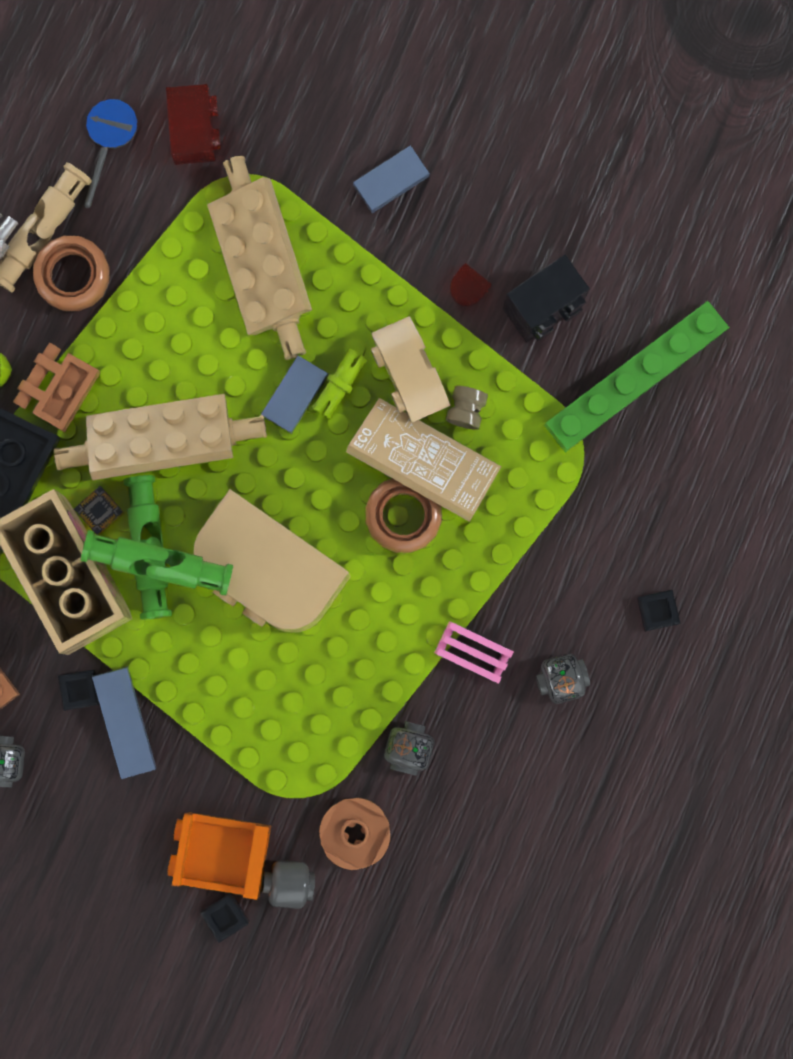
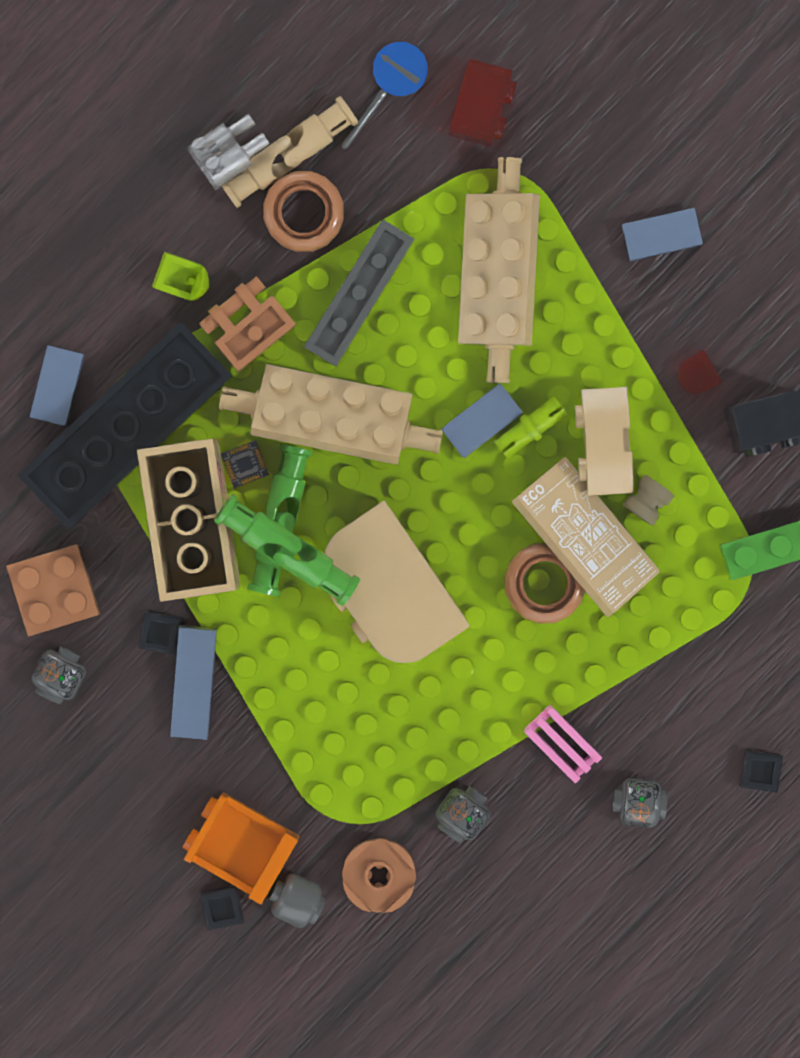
camera: 20 degrees right, 5 degrees up
(145, 323) = (359, 293): none -> dark grey plate

